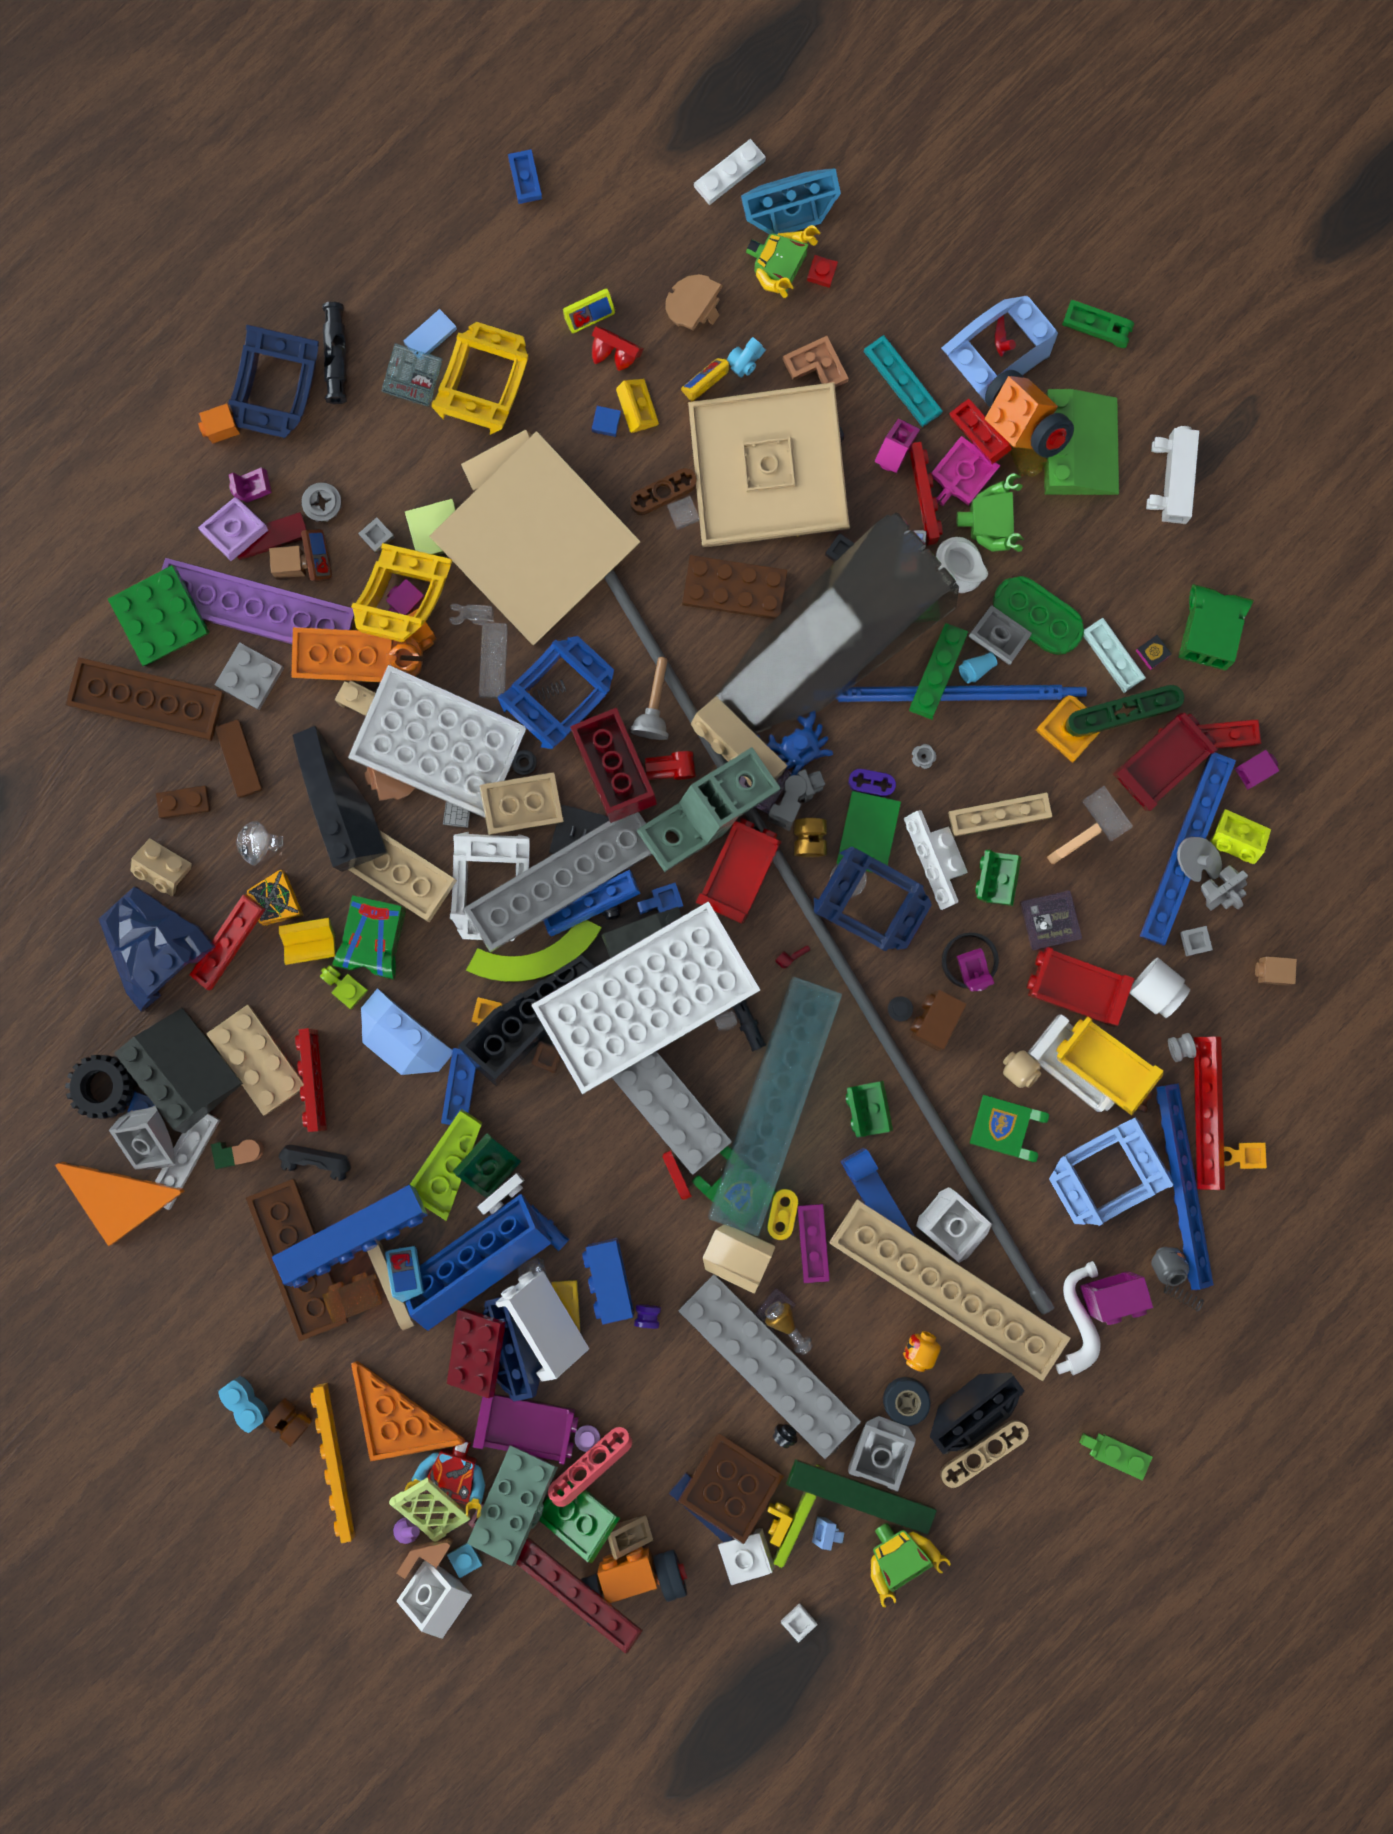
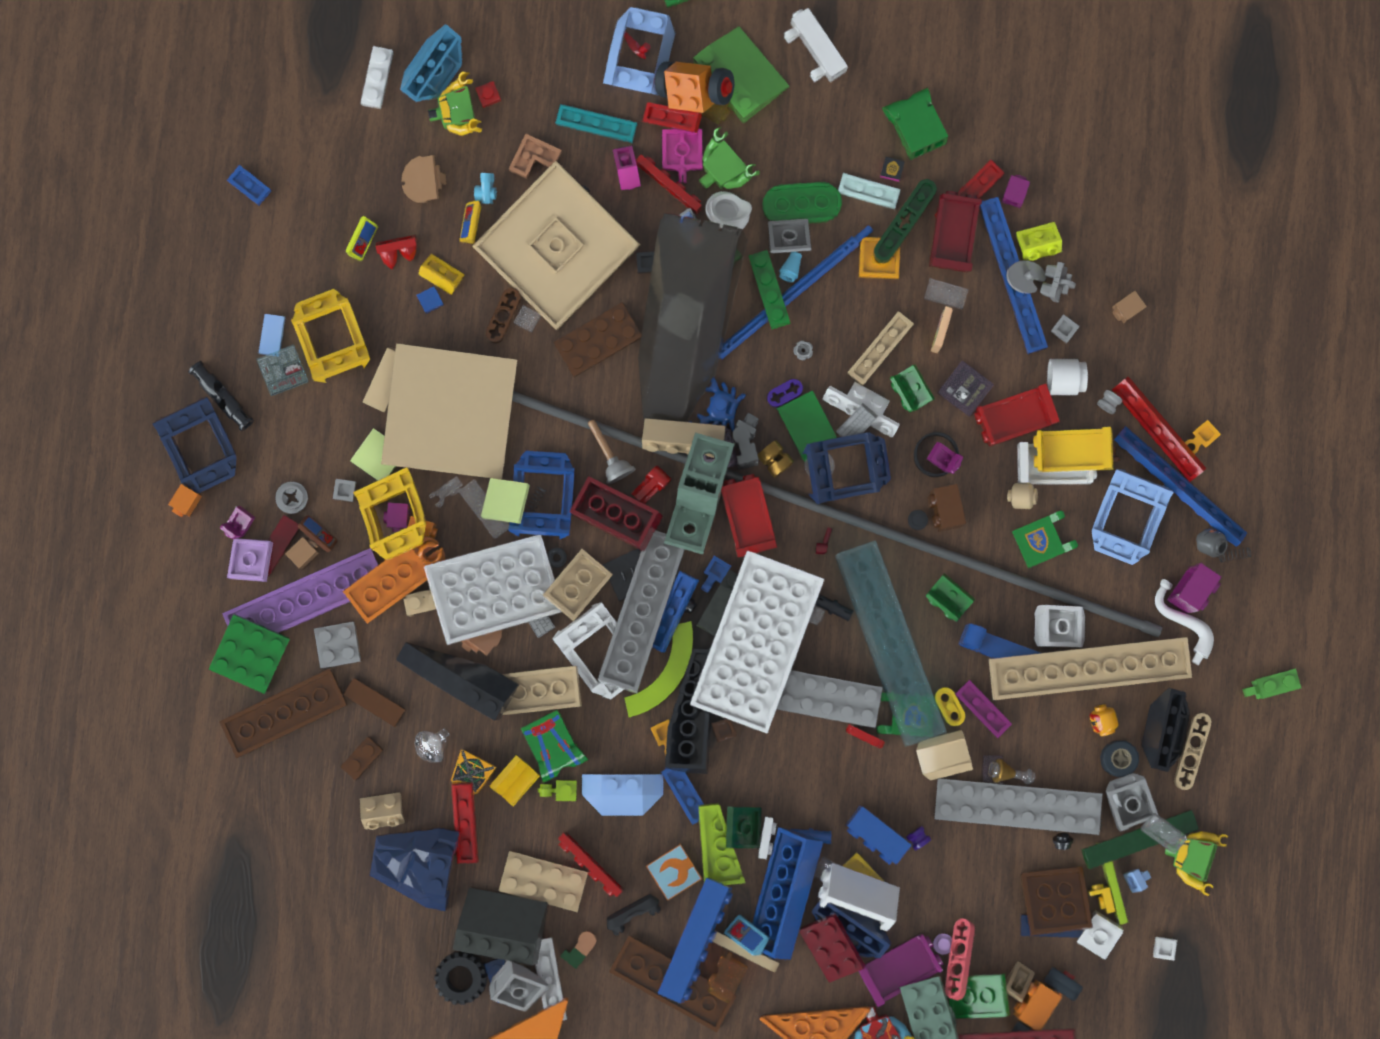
camera: 35 degrees left, 0 degrees up
(387, 1154) = (674, 872): none -> medium azure tile
(518, 667) = (505, 500): none -> yellowish green tile
(890, 1511) = (1164, 833): none -> clear plate
(920, 866) = (858, 421): none -> light grey tile

